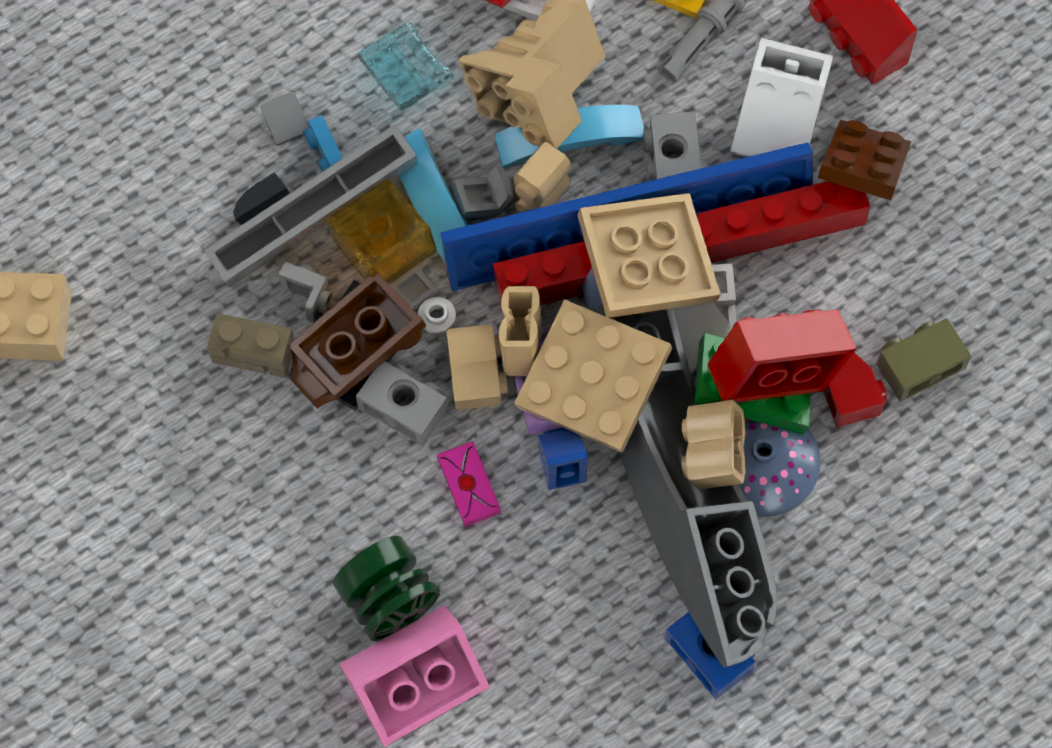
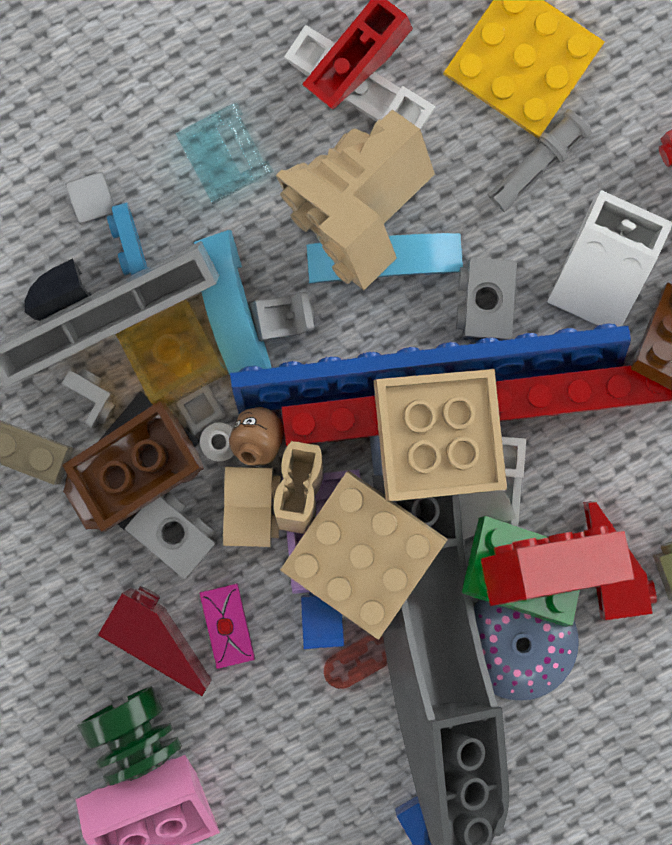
camera: 10 degrees right, 20 degrees up
(392, 489) = (151, 635): none -> dark red slope
(475, 296) = (256, 436): none -> medium nougat head
(542, 179) = (344, 319): tan brick -> none
(597, 491) = (350, 653): none -> clear red beam
(714, 445) = (473, 644): tan brick -> none

